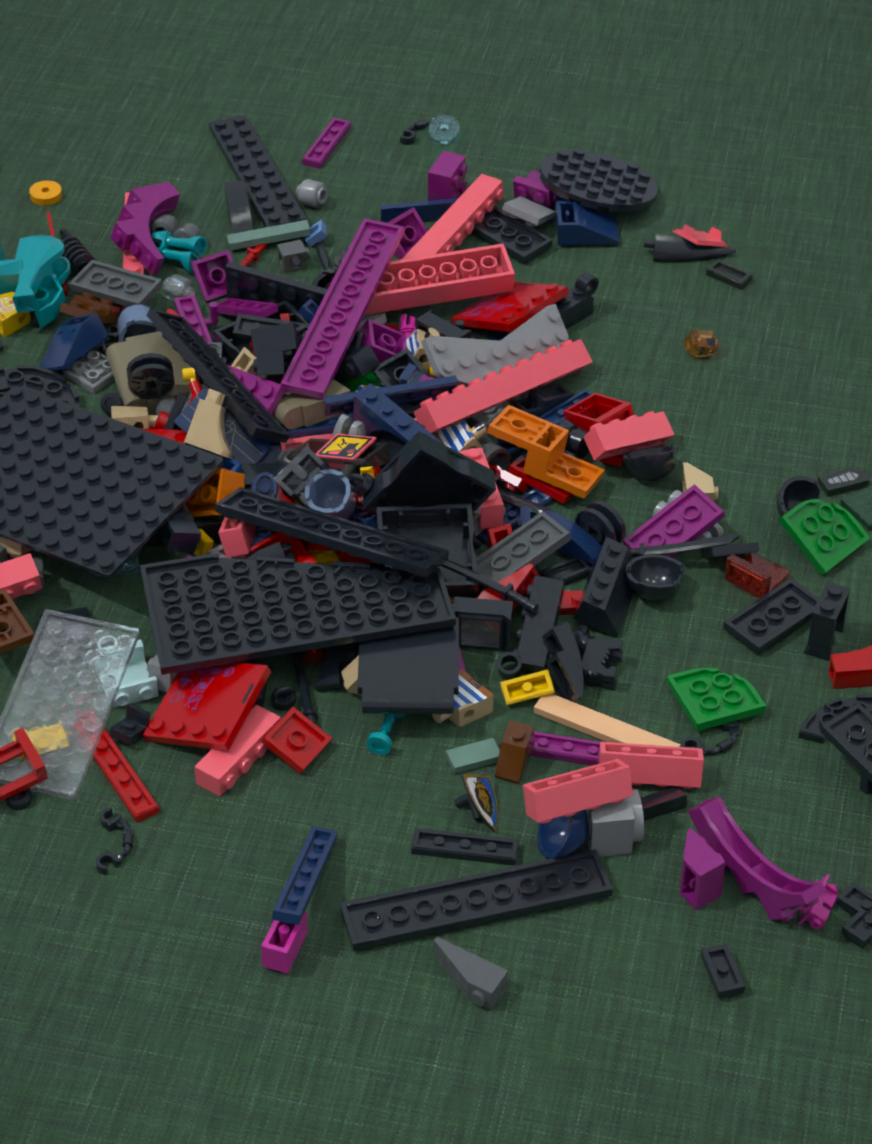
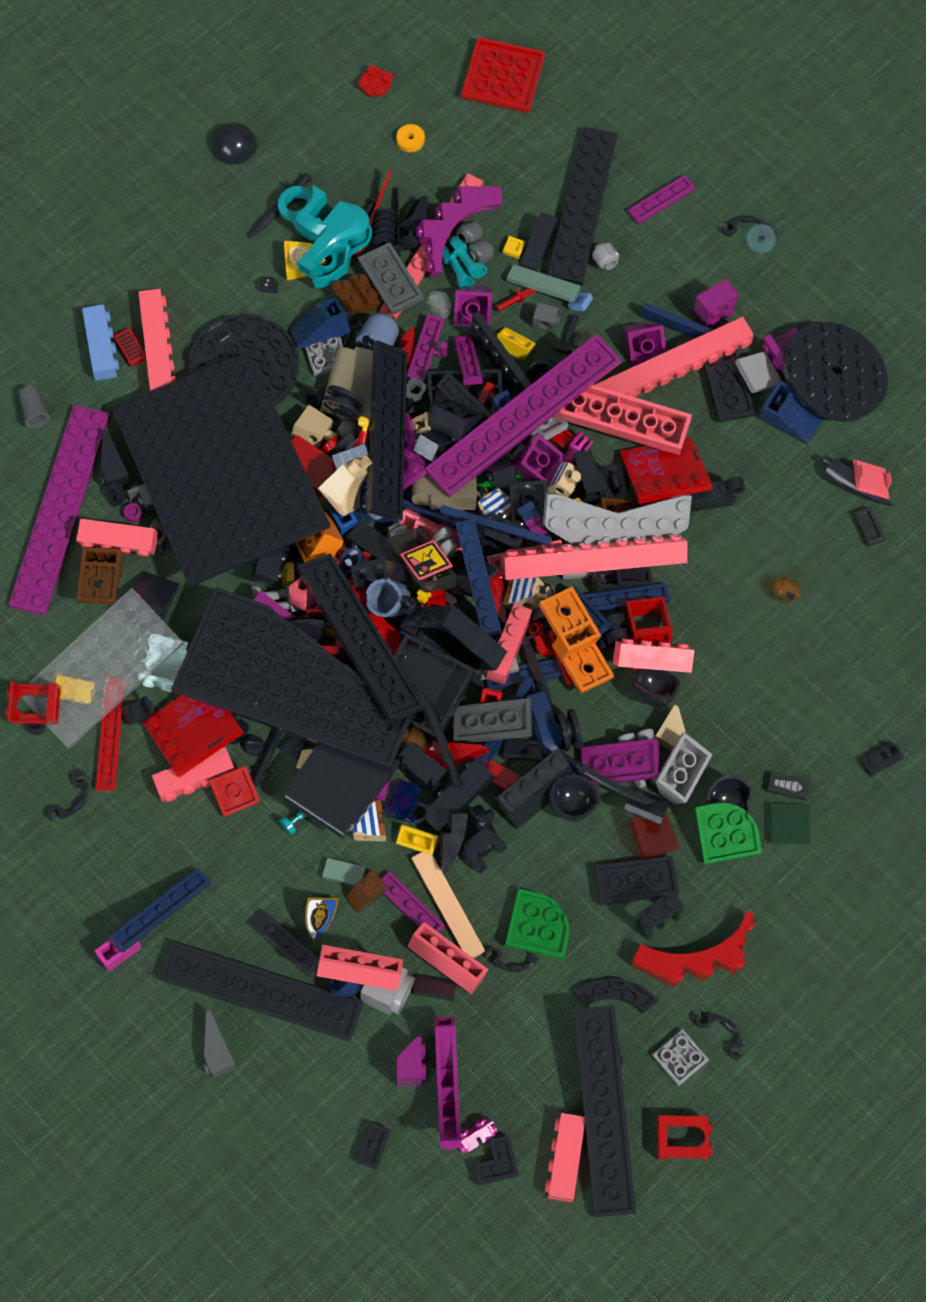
camera: 30 degrees right, 25 degrees up
(100, 118) = (503, 75): none -> red plate
(101, 244) = (414, 215): none -> black slope
(216, 225) = (514, 247): none -> yellow tile
(486, 663) = (402, 802): none -> clear blue wing
(740, 505) = (682, 769): none -> light grey slope

